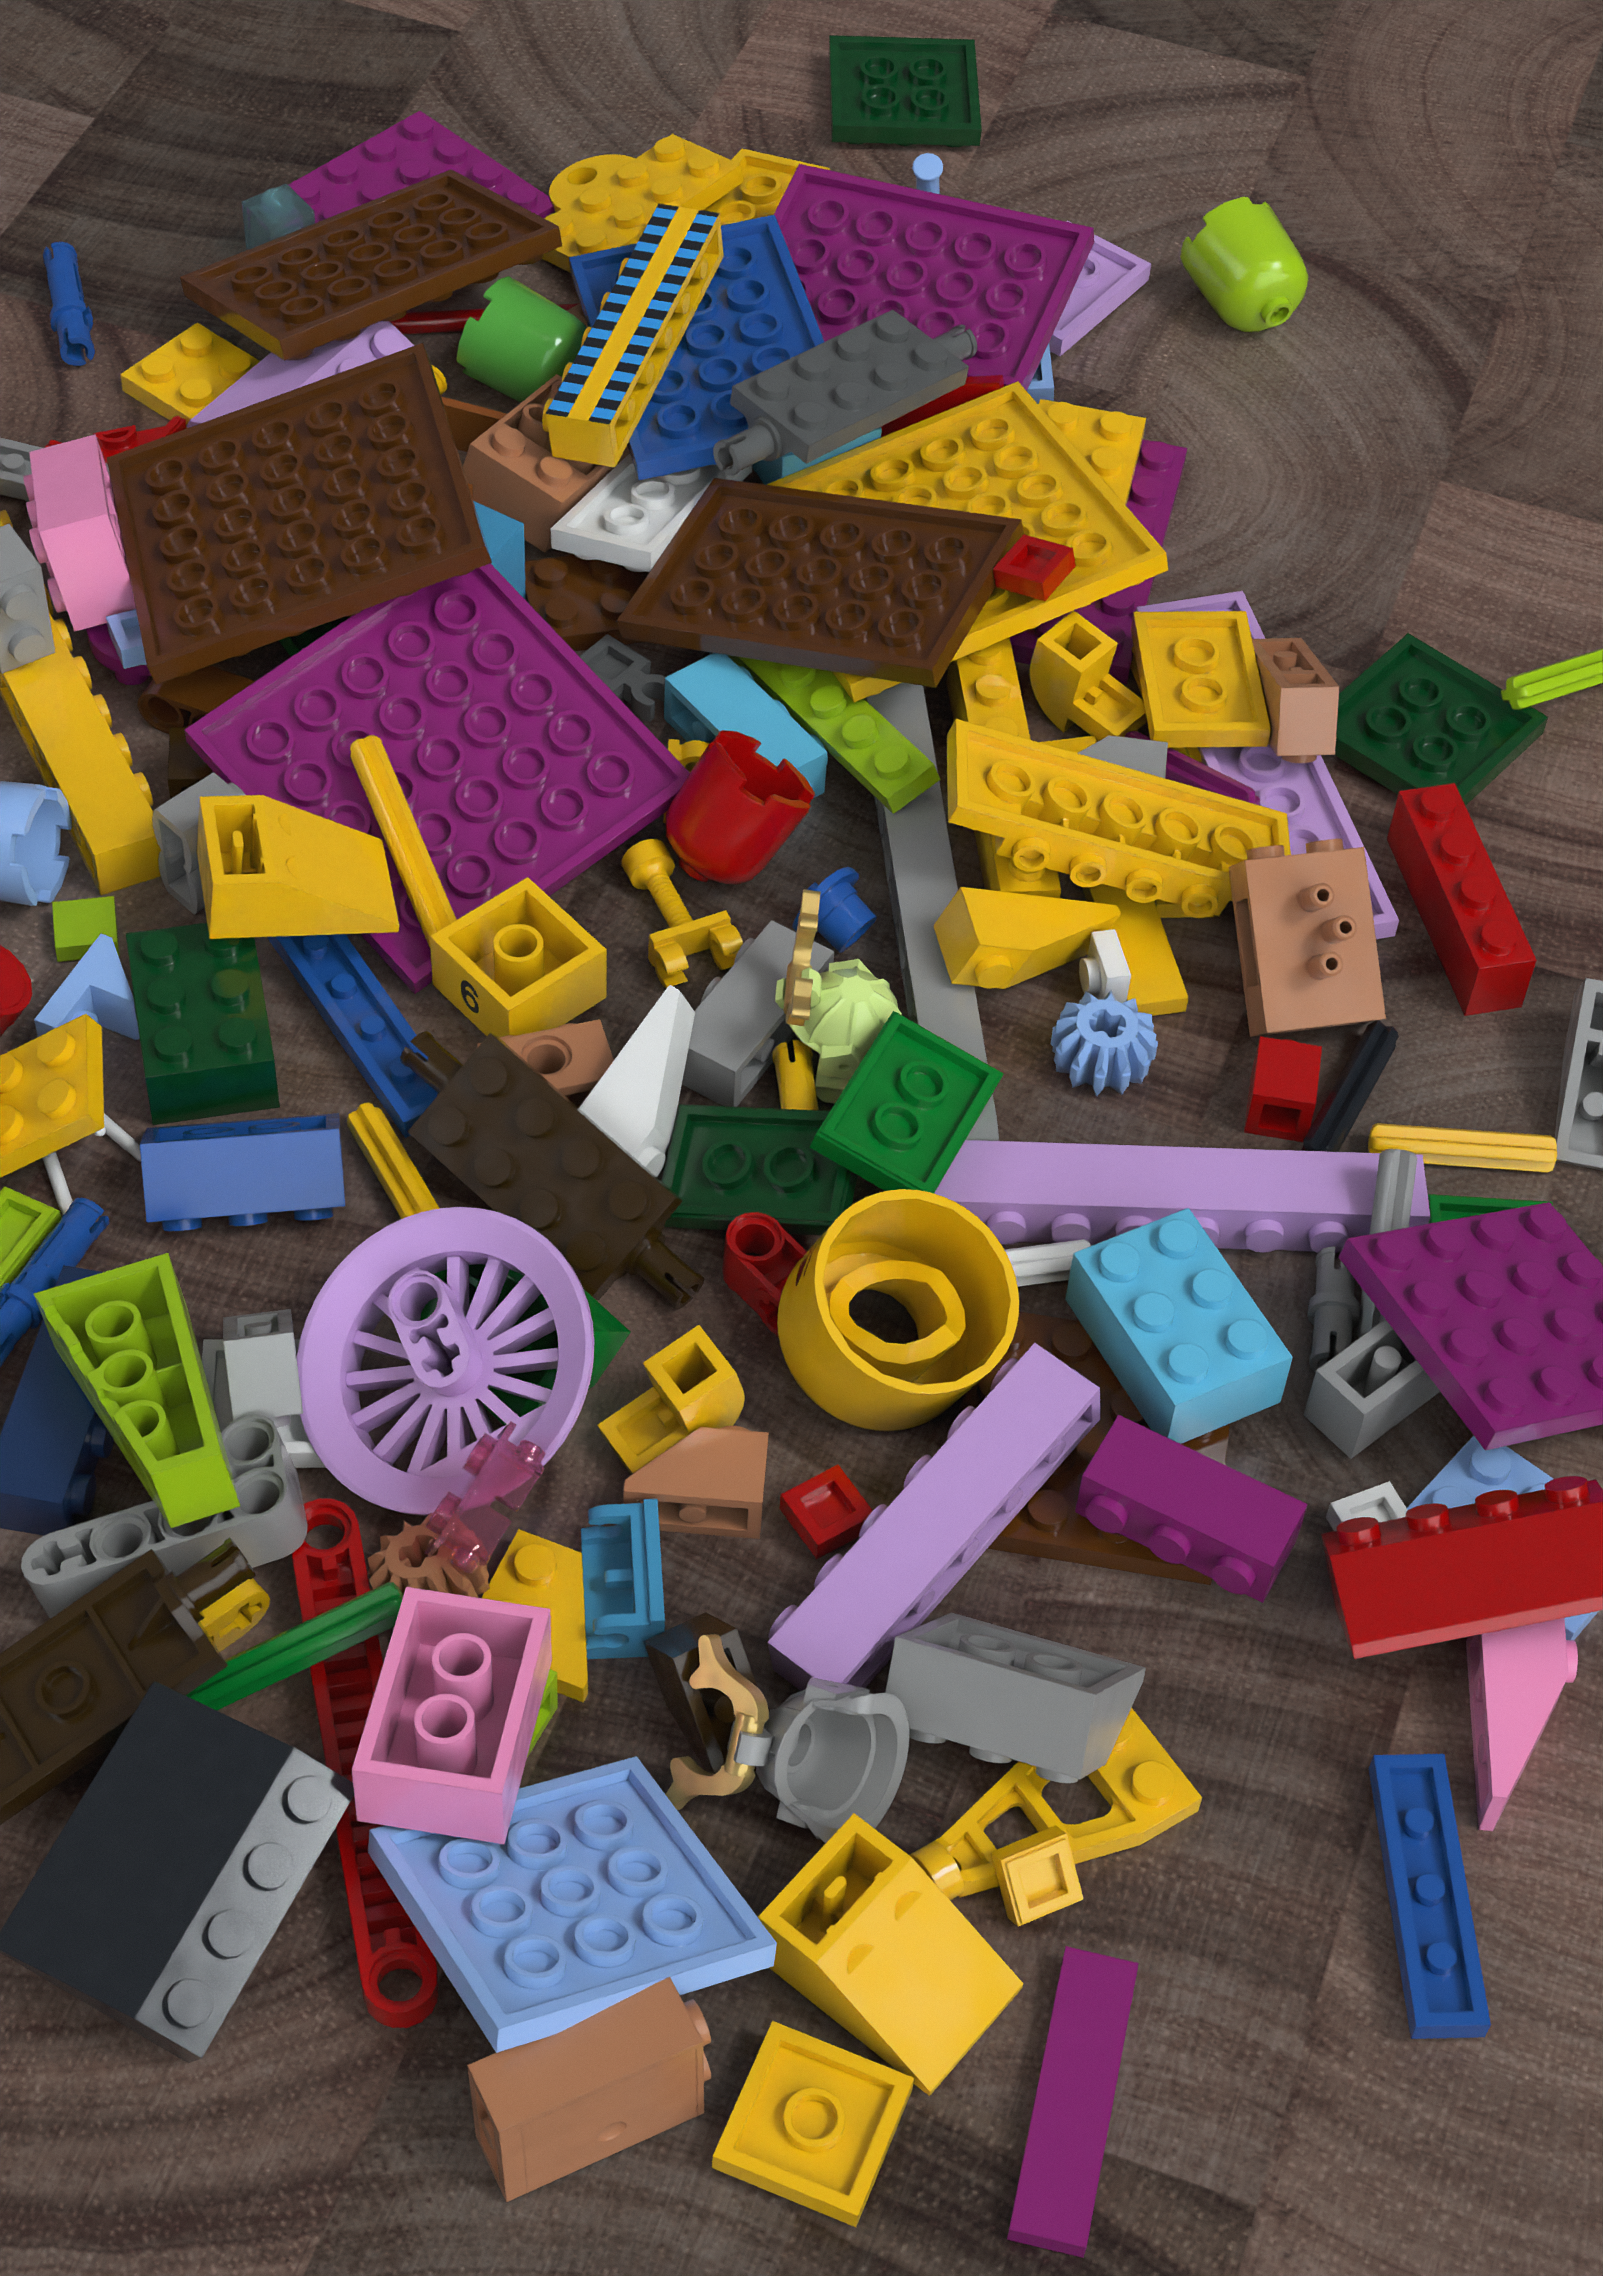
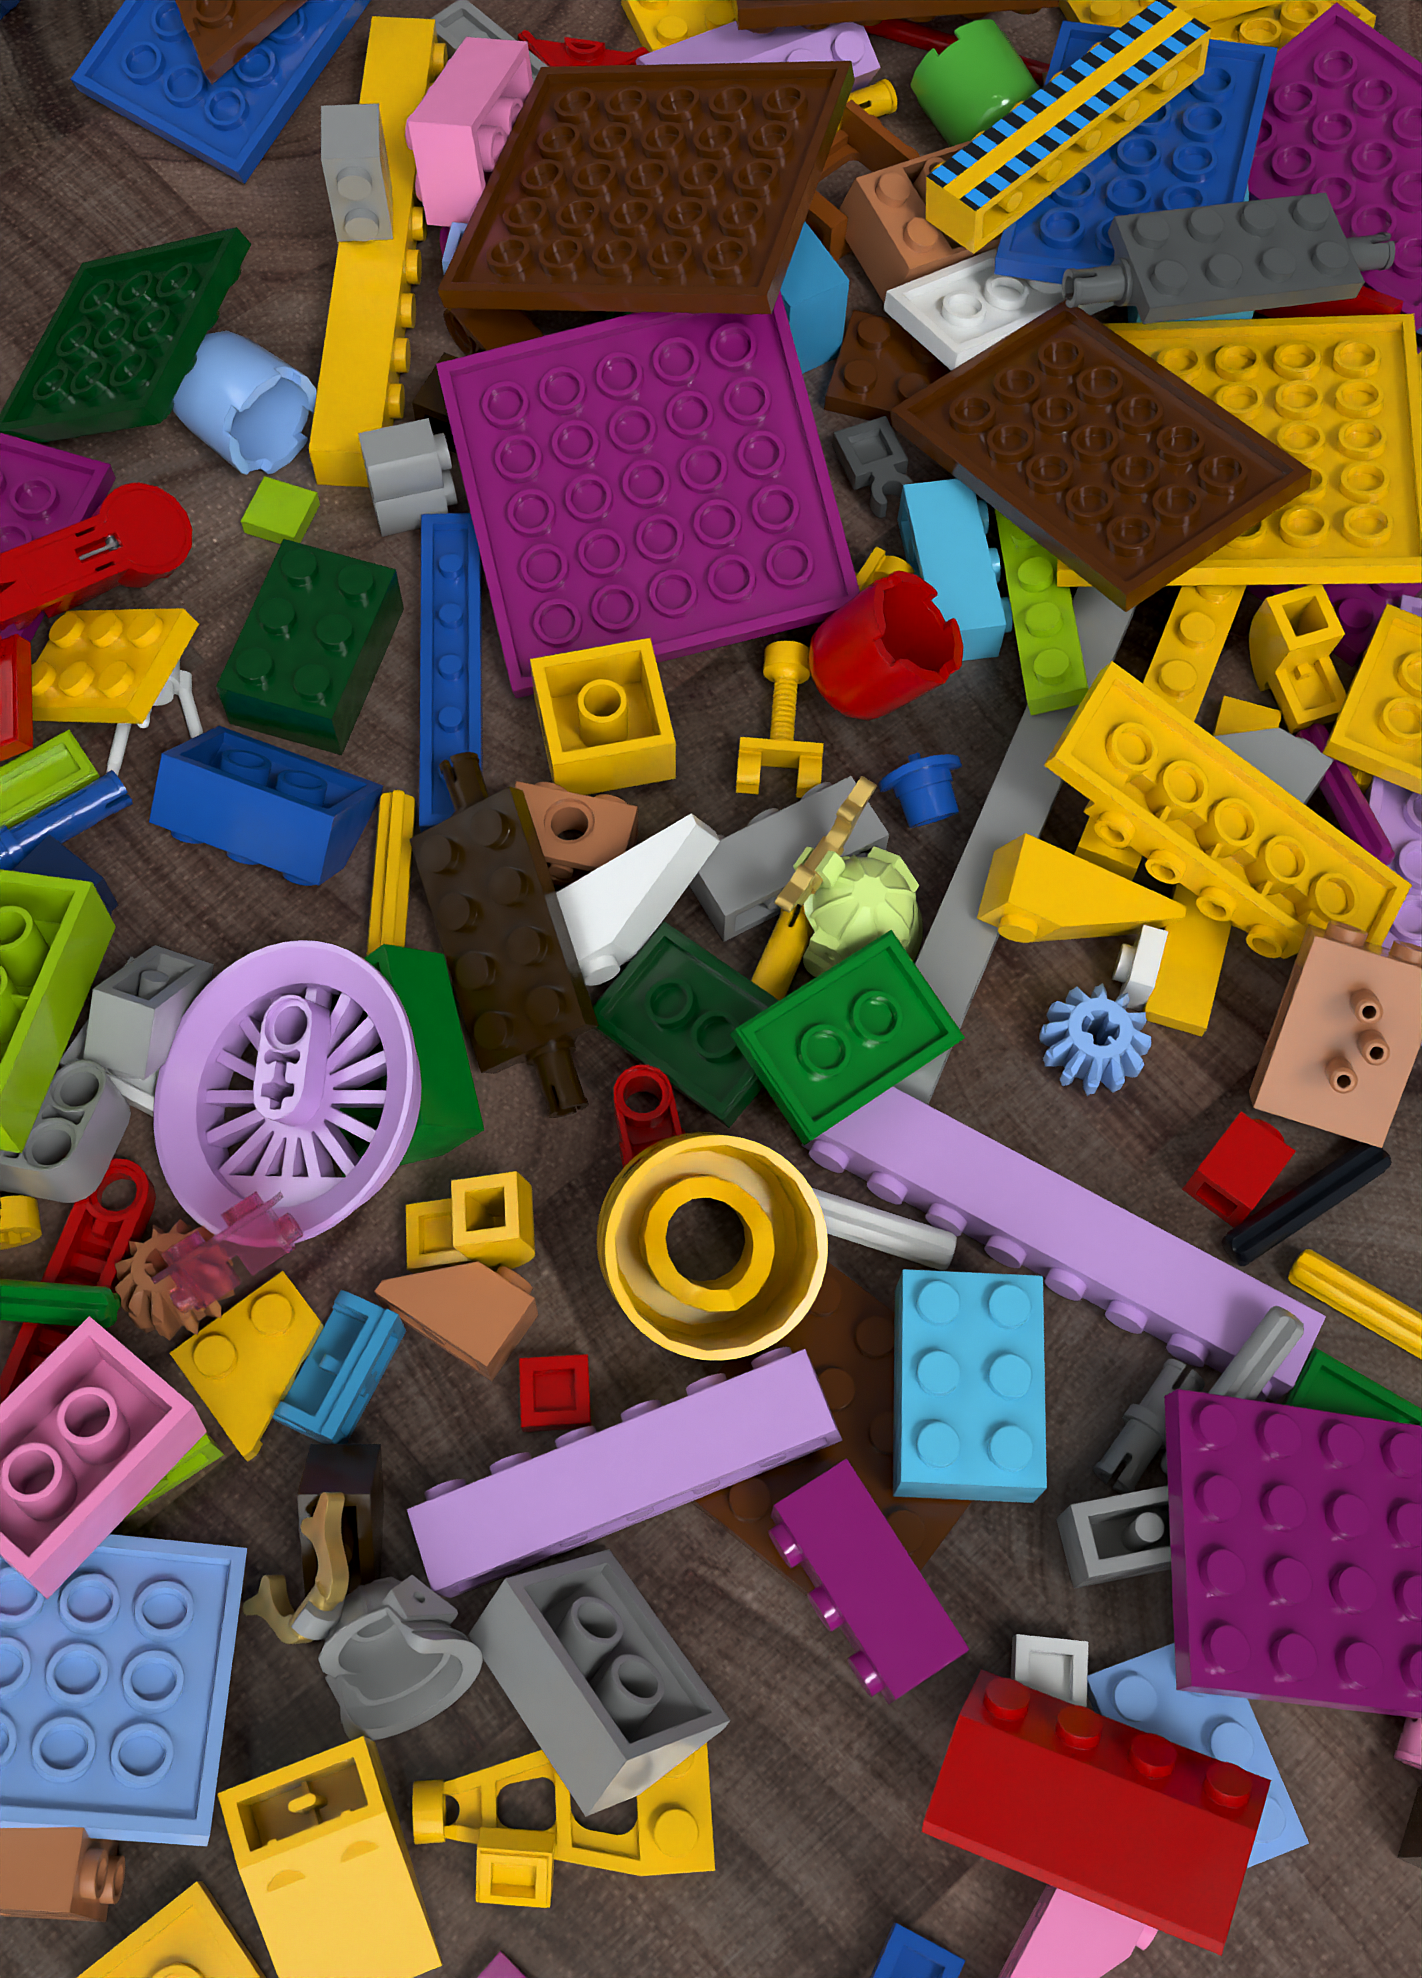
camera: 30 degrees right, 15 degrees up
(96, 989) = (226, 582): light blue slope -> none
(288, 872) = (436, 545): yellow slope -> none
(401, 835) = (566, 547): yellow axle -> none
(1034, 567) = (1294, 527): red plate -> none

